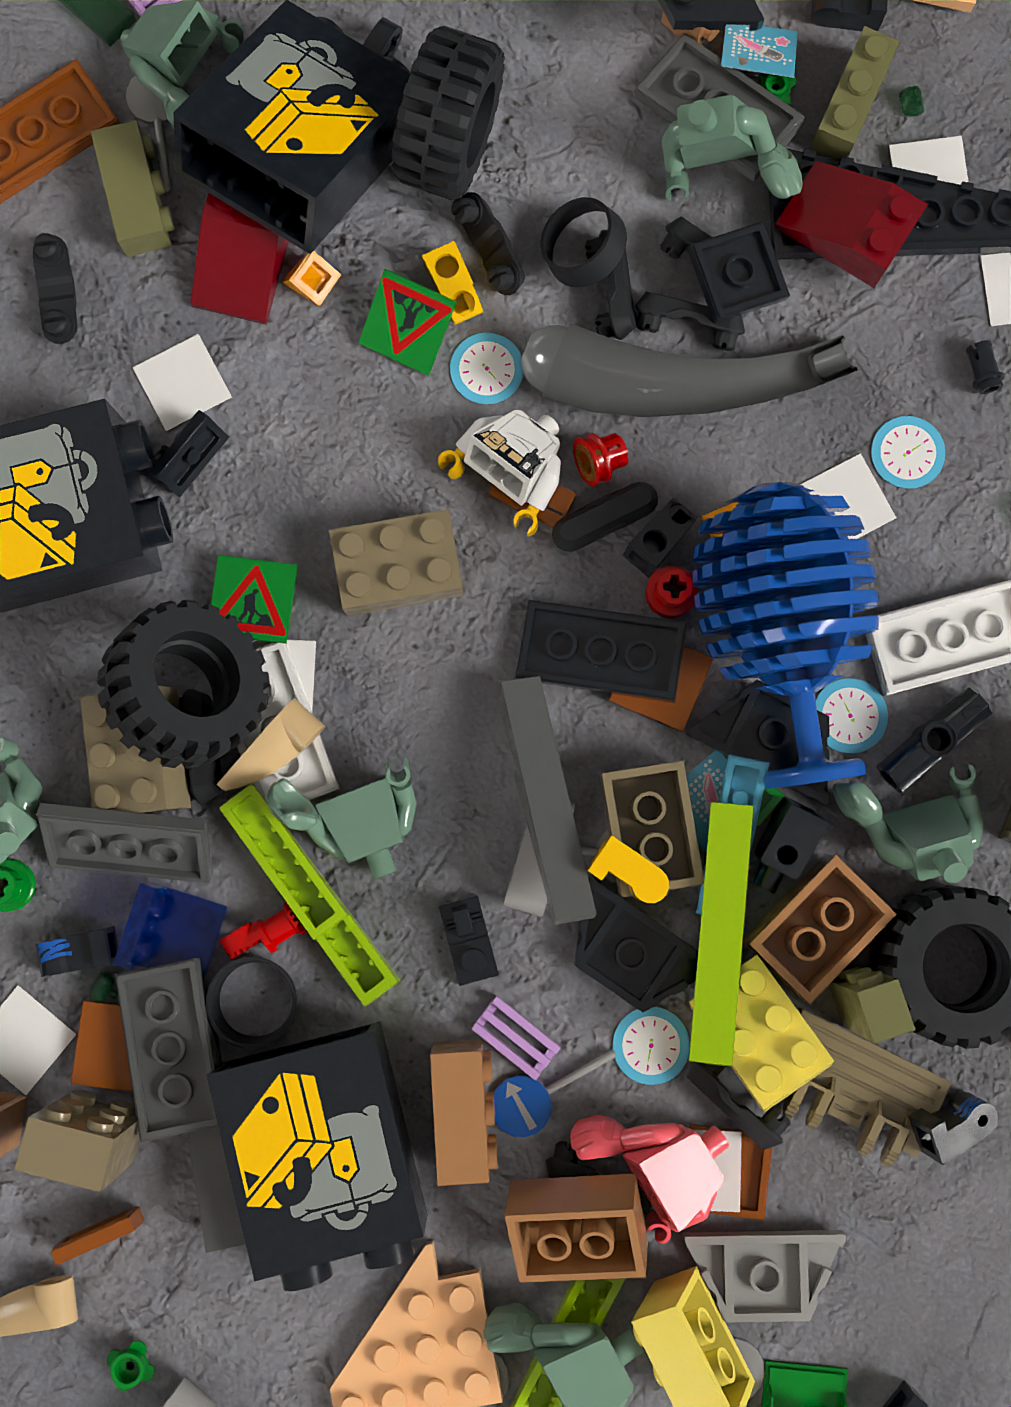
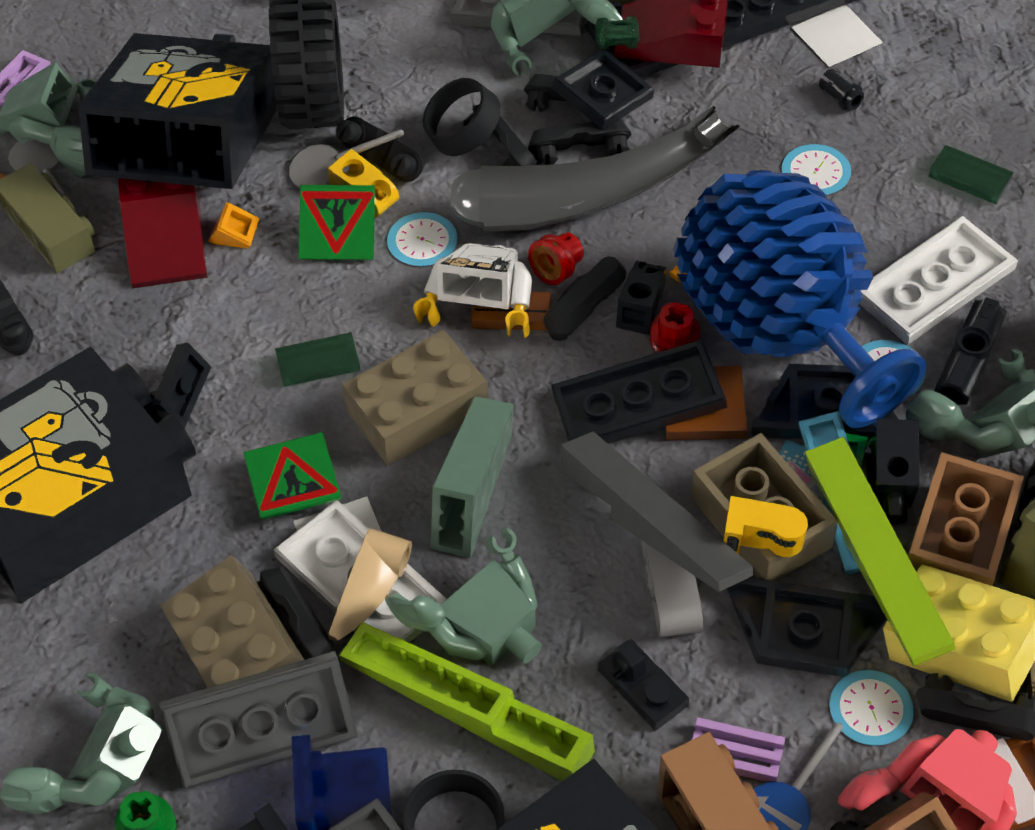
camera: 20 degrees left, 30 degrees down
(143, 711) = (263, 534): black tyre -> none
(182, 382) = (146, 343): white sticker -> none
(269, 932) = (437, 753): red connector -> none
(329, 472) = (317, 359): none -> clear green tile
(412, 669) = (470, 476): none -> sand green slope
(423, 230) = (312, 163): none -> light grey piece
(783, 212) = (617, 32): none -> clear green bush

